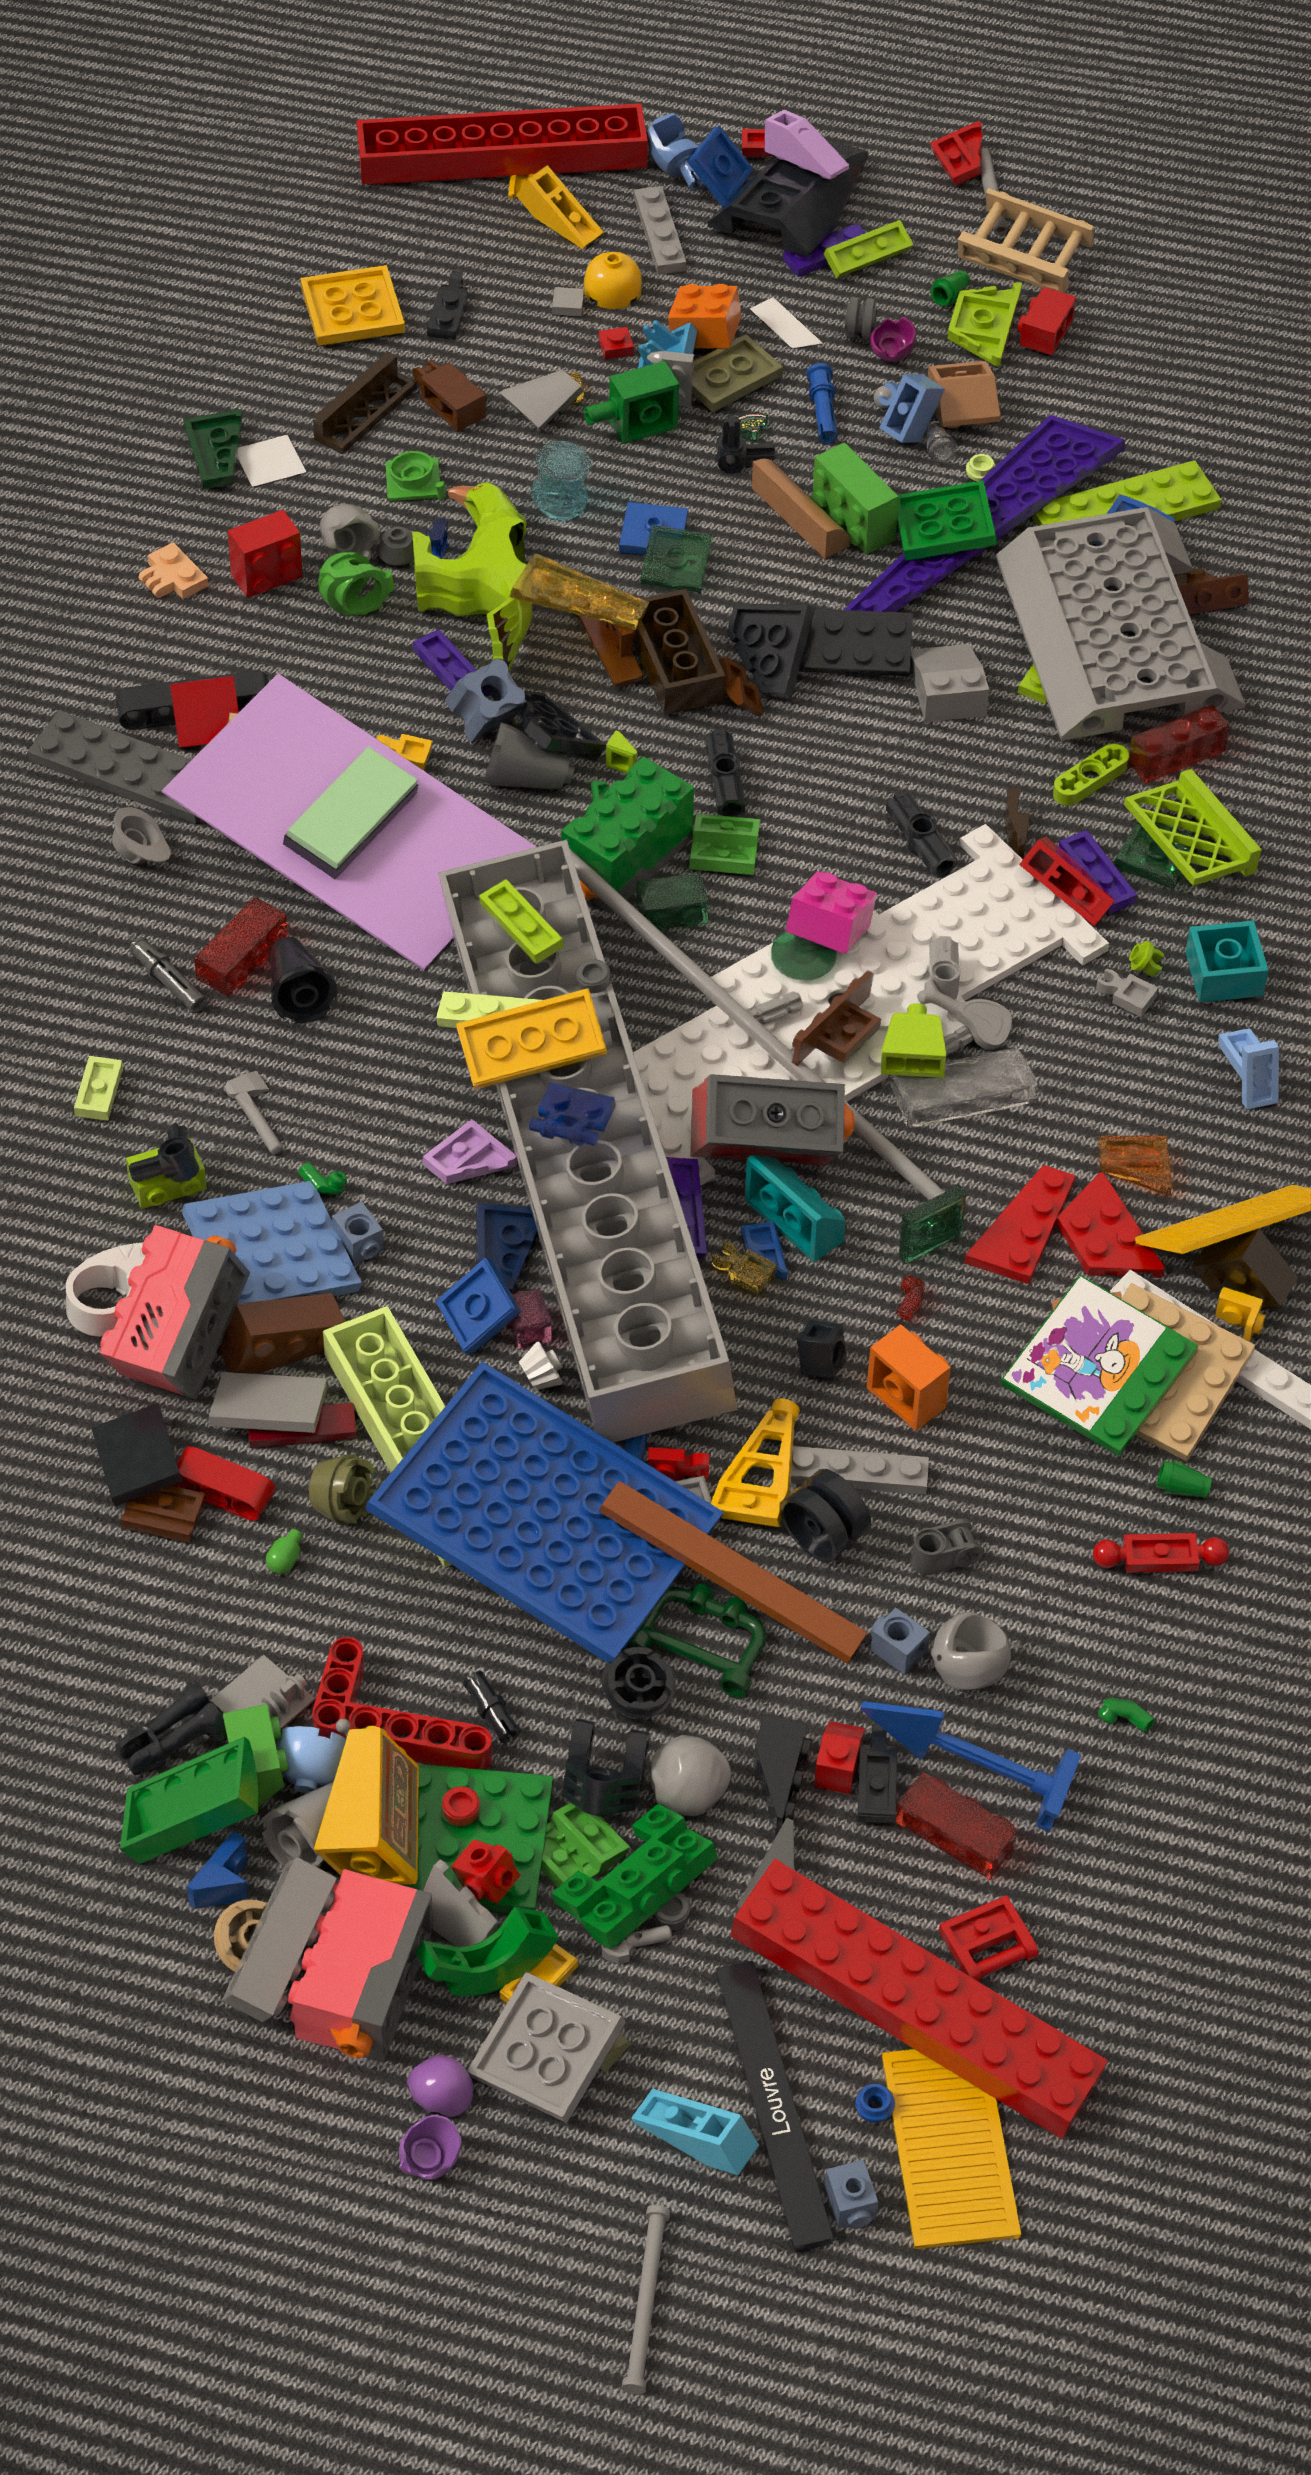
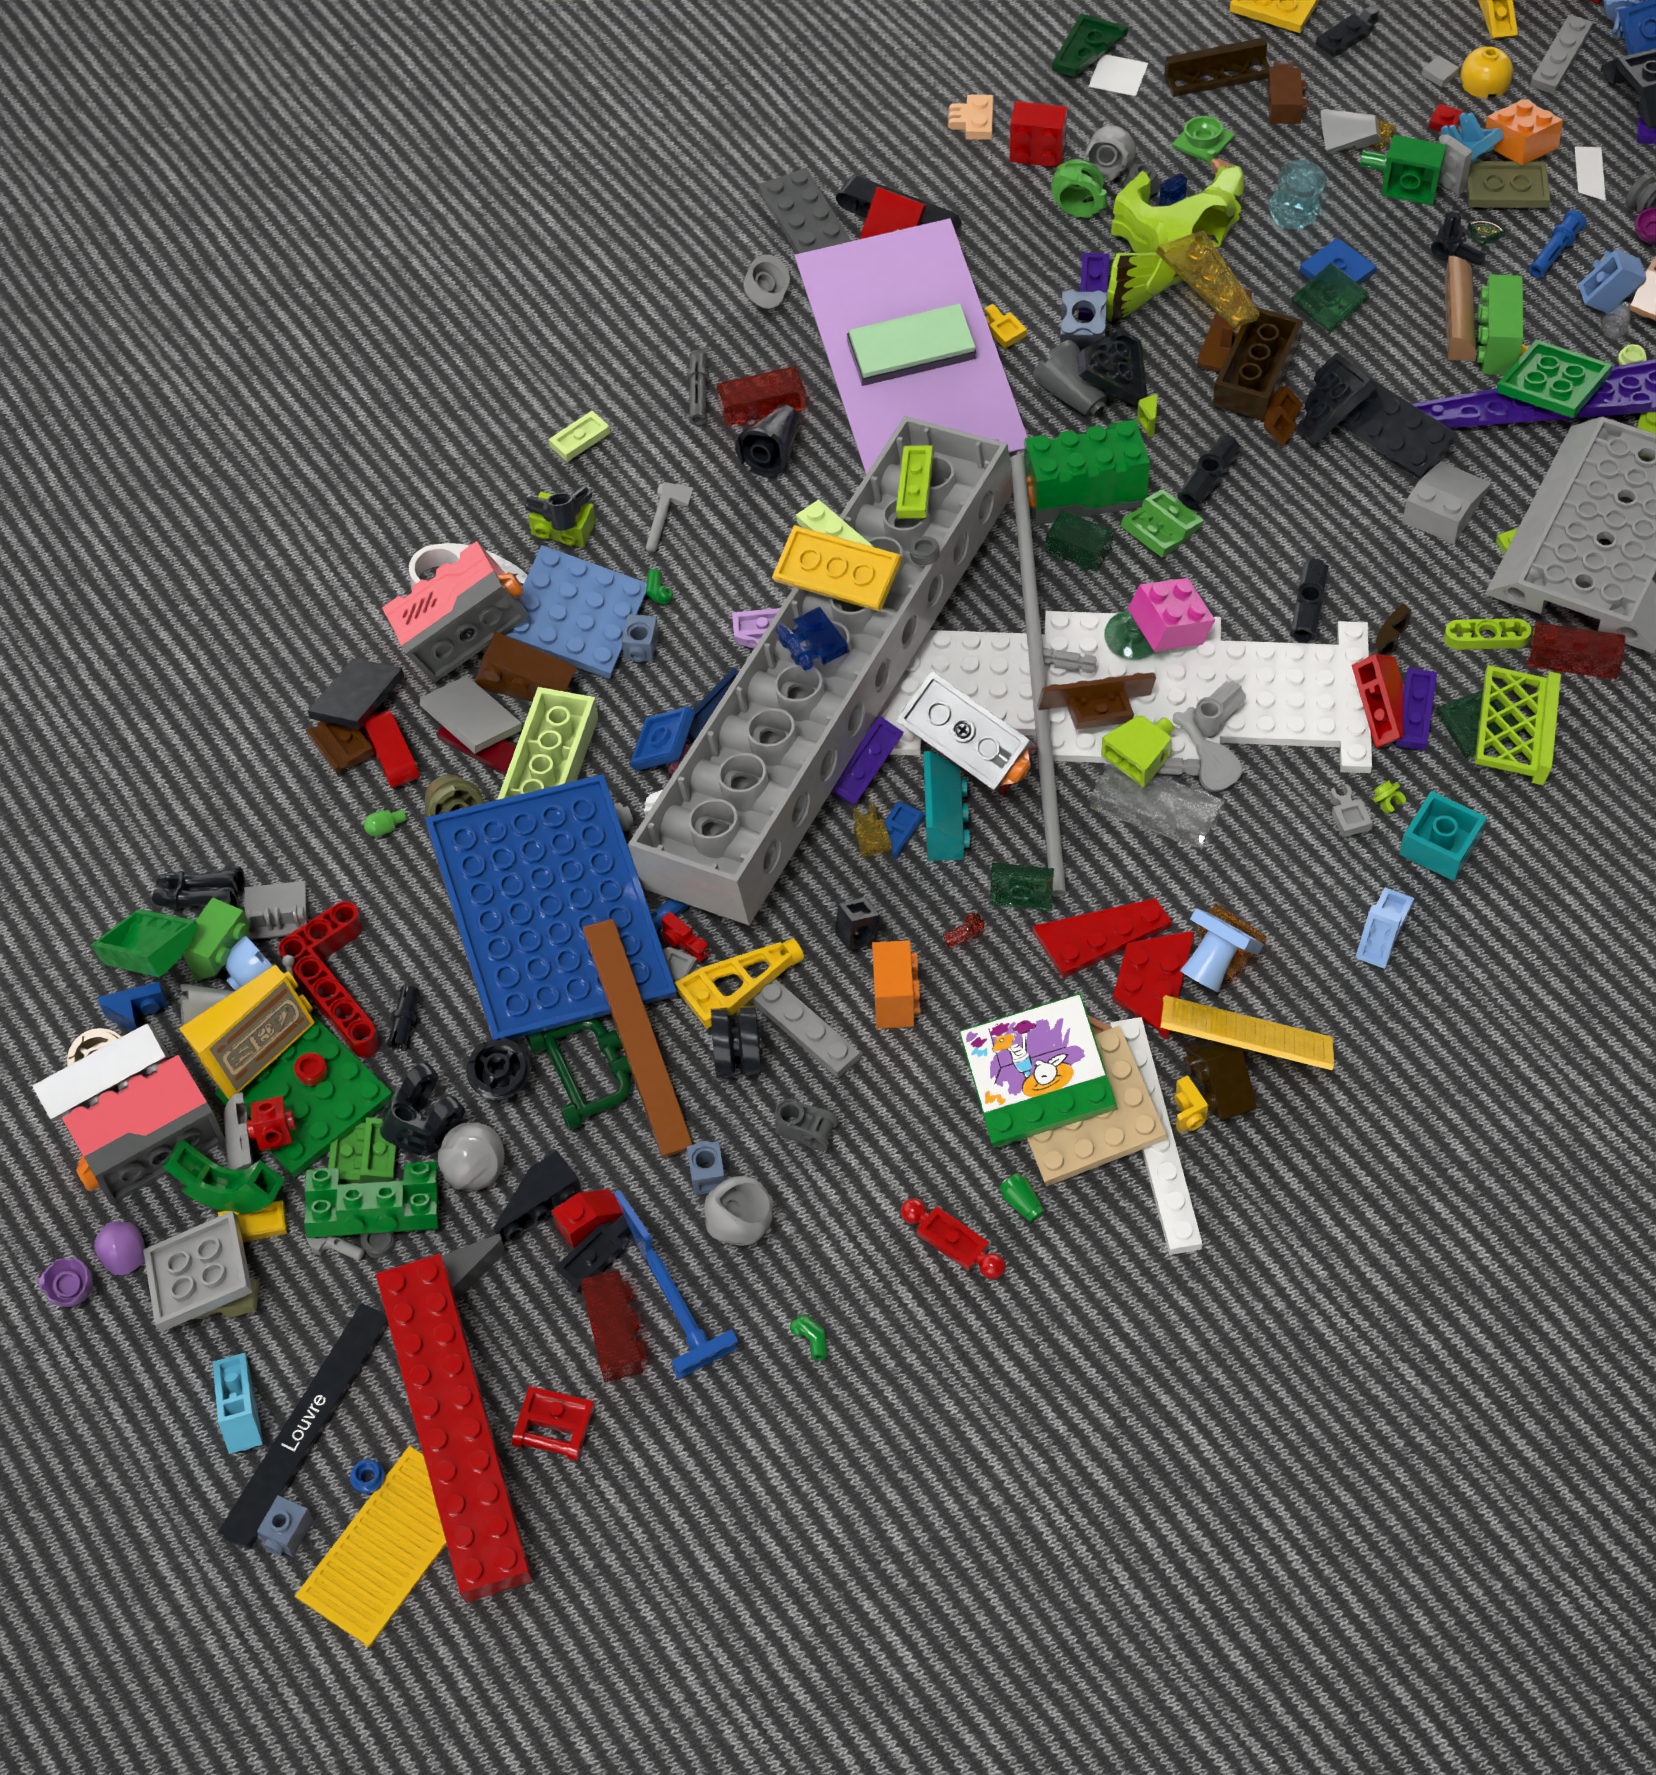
camera: 45 degrees right, 5 degrees up
(634, 2381) = (96, 1490): light grey bar -> none
(1147, 1168) = (1216, 950): none -> light blue plant

